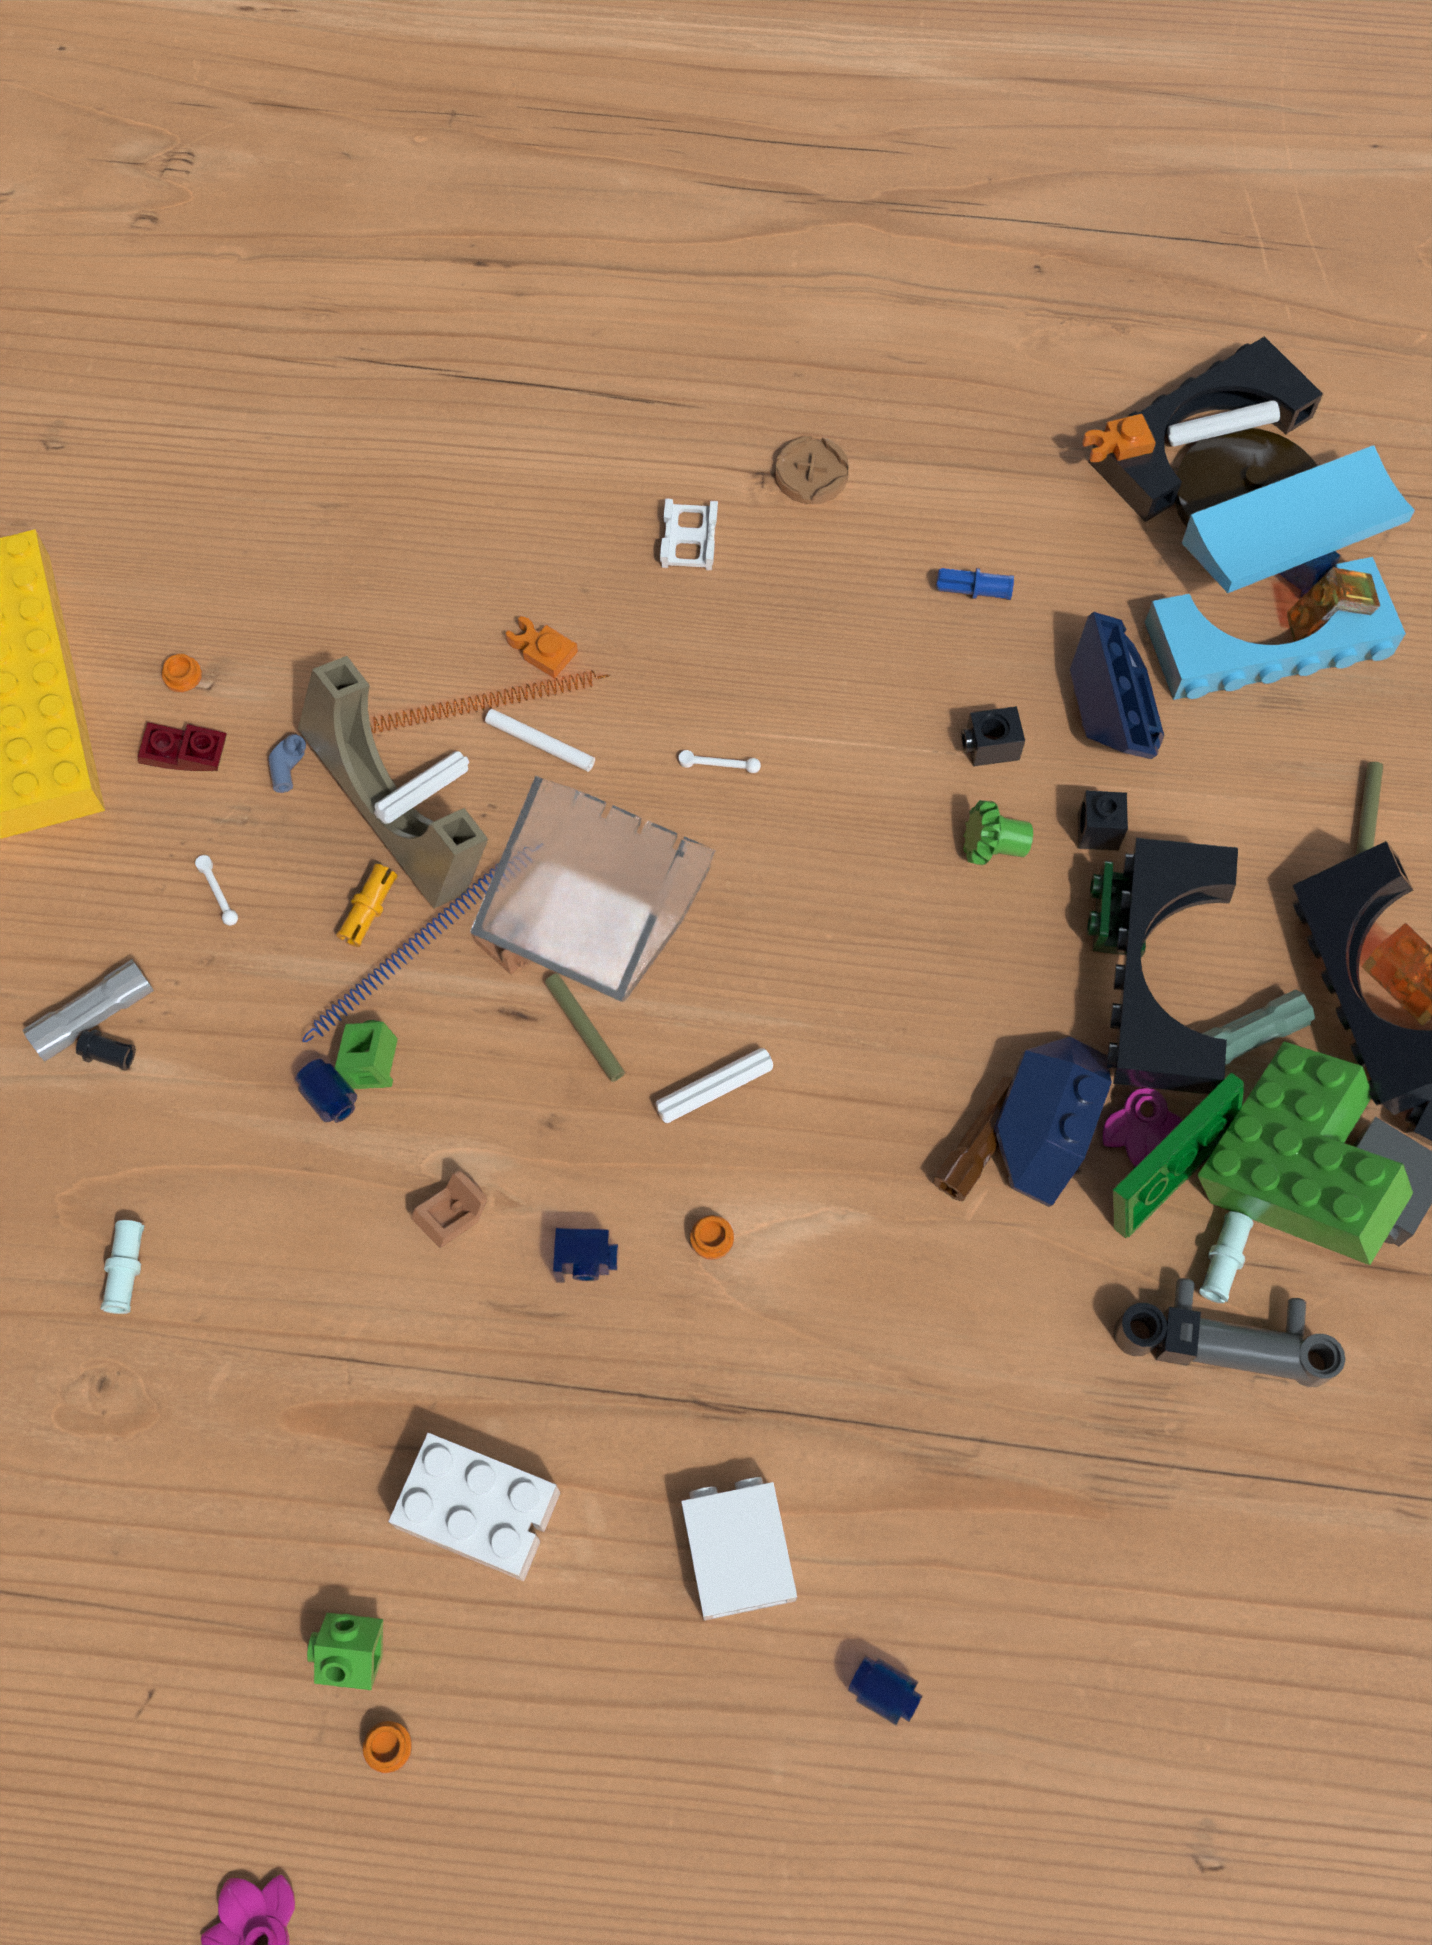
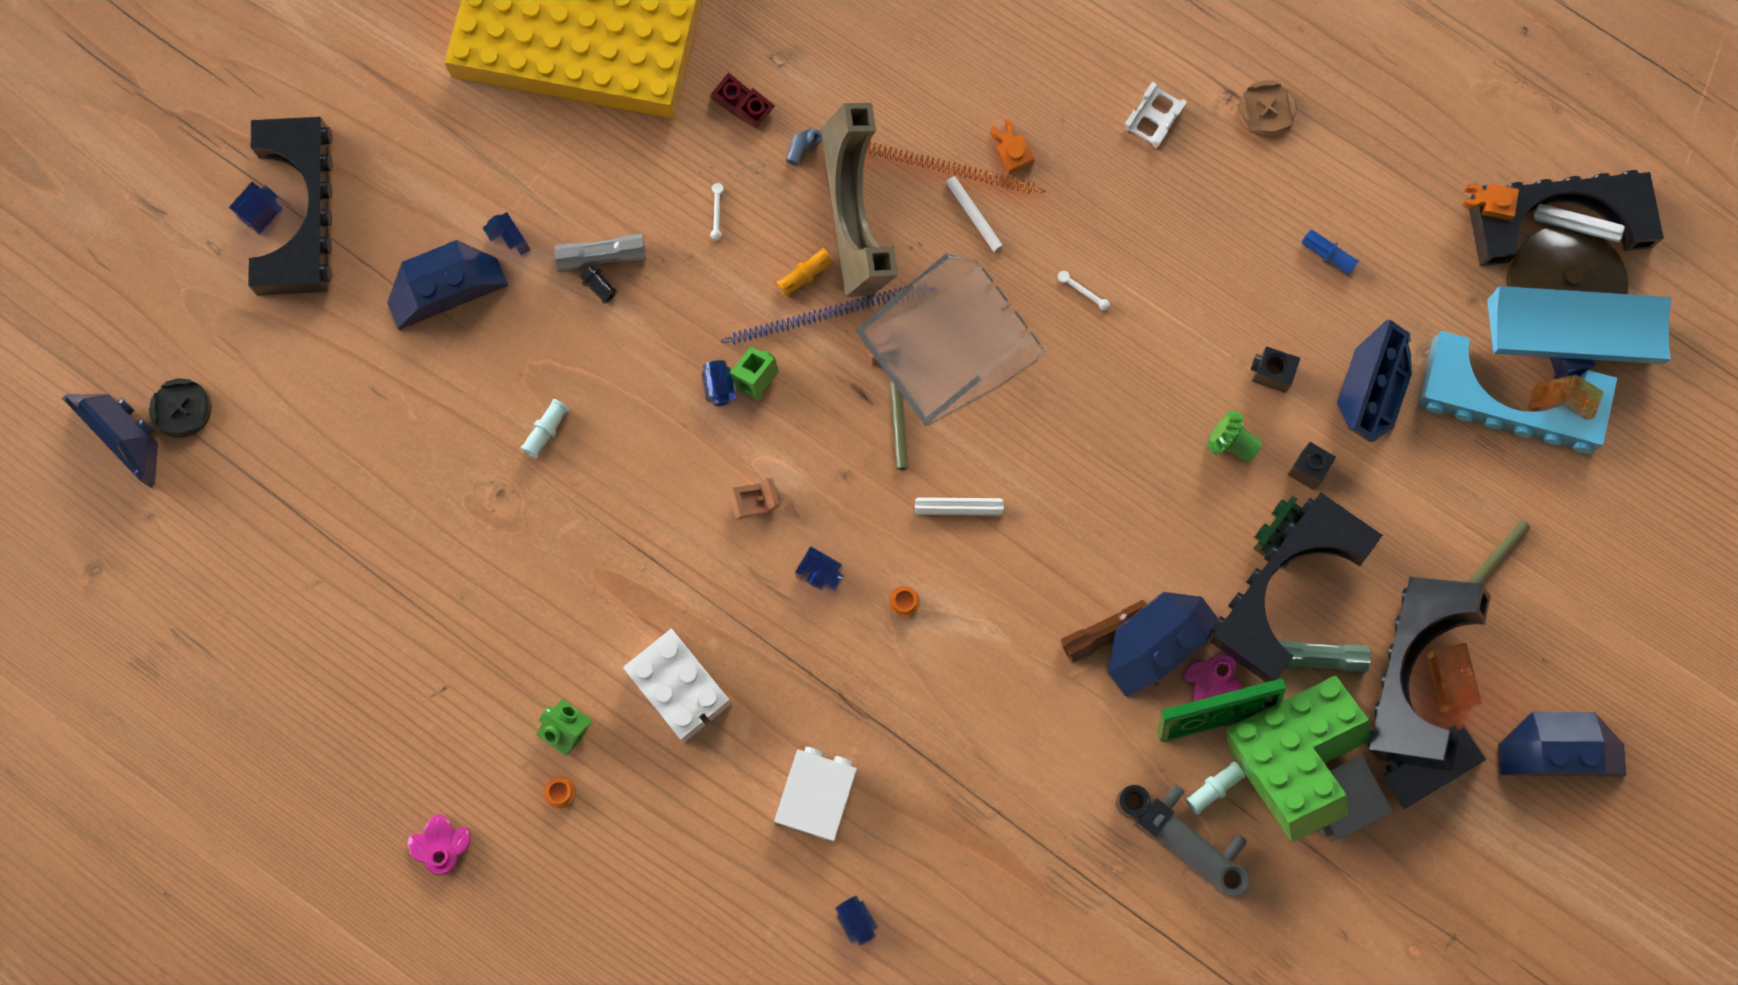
camera: 30 degrees right, 10 degrees up
(181, 673) = (767, 47): orange plate -> none
(421, 787) = (879, 210): white axle -> none

